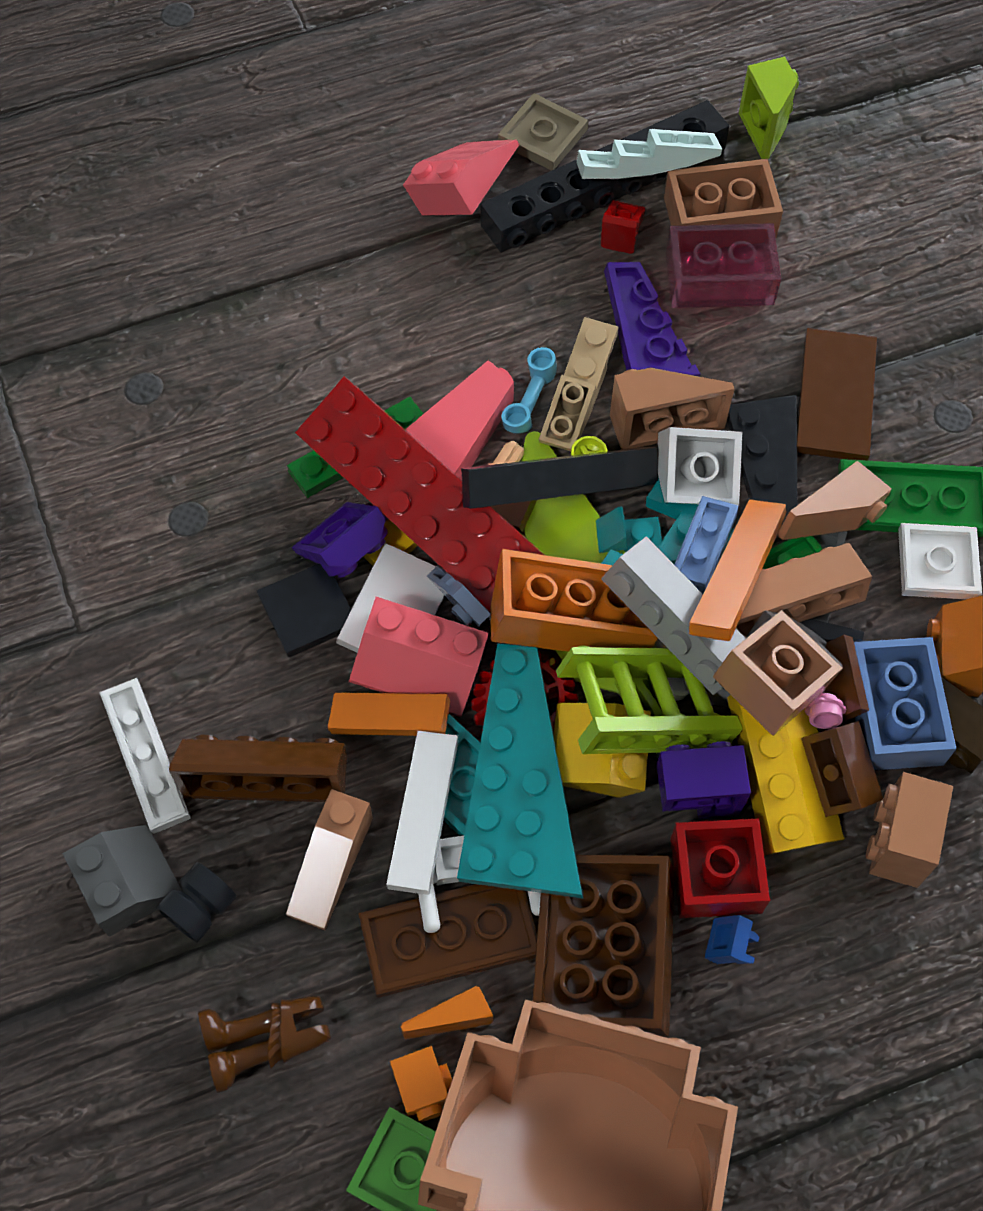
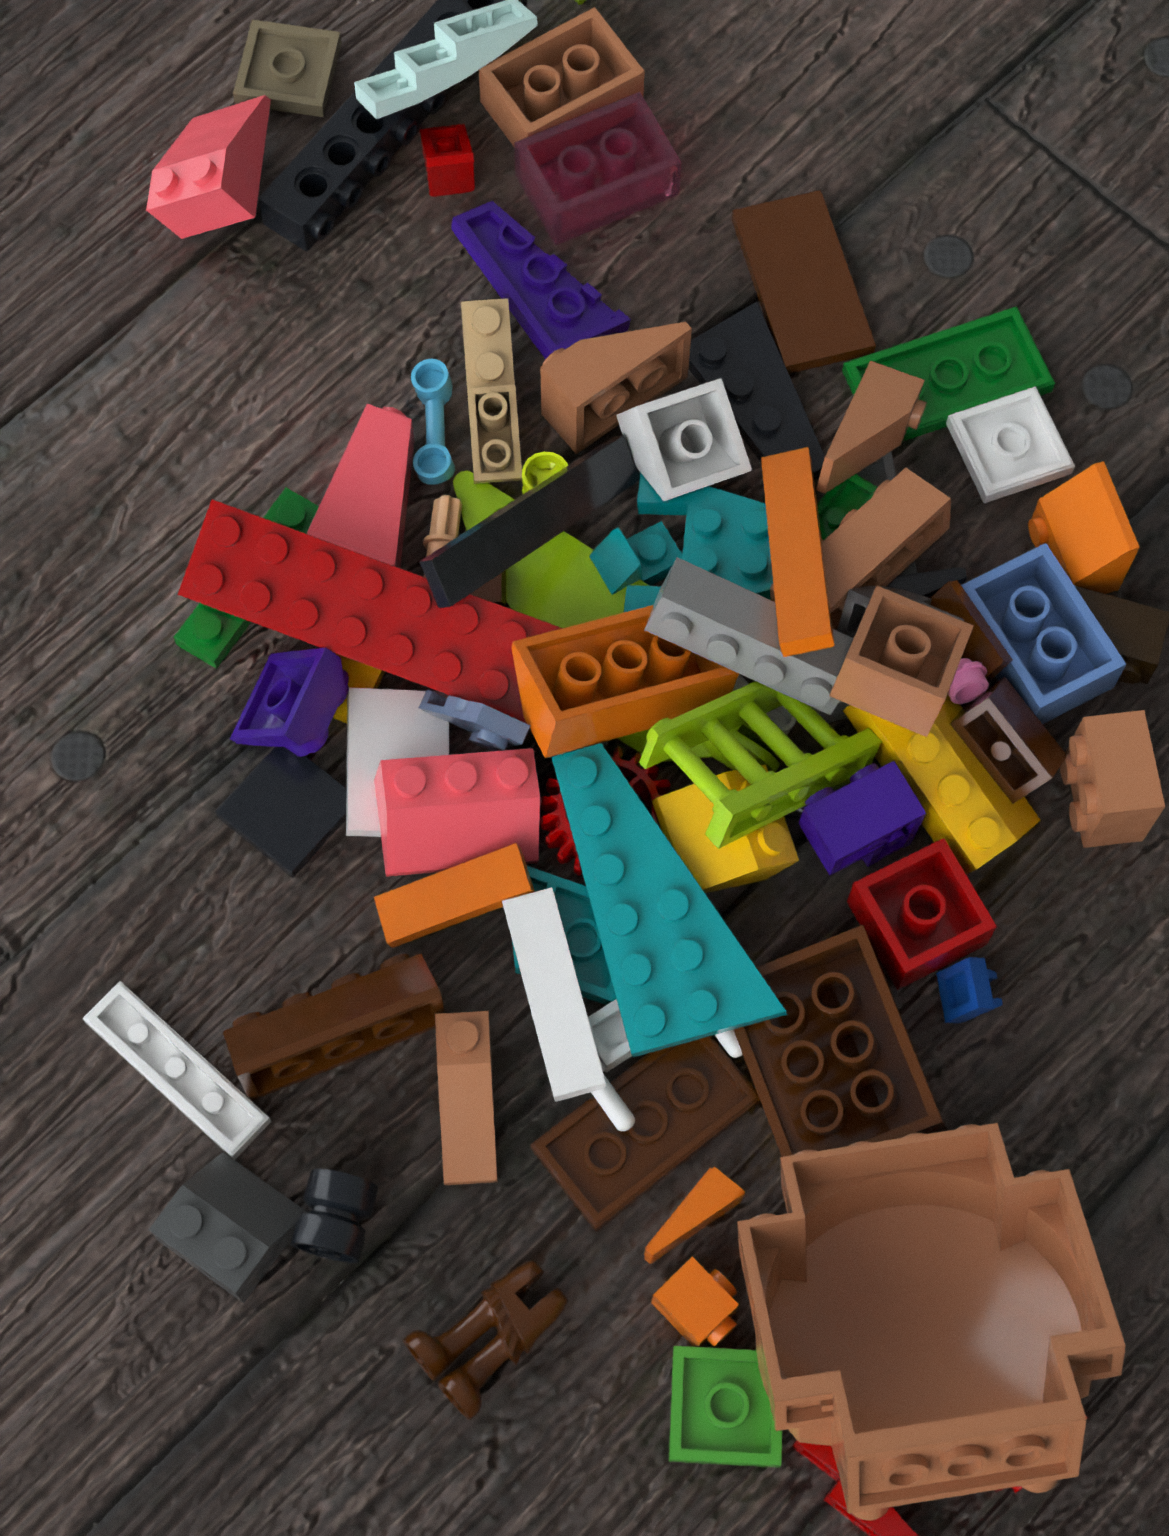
camera: 25 degrees left, 5 degrees up
(706, 540) = (738, 530): medium blue tile -> none

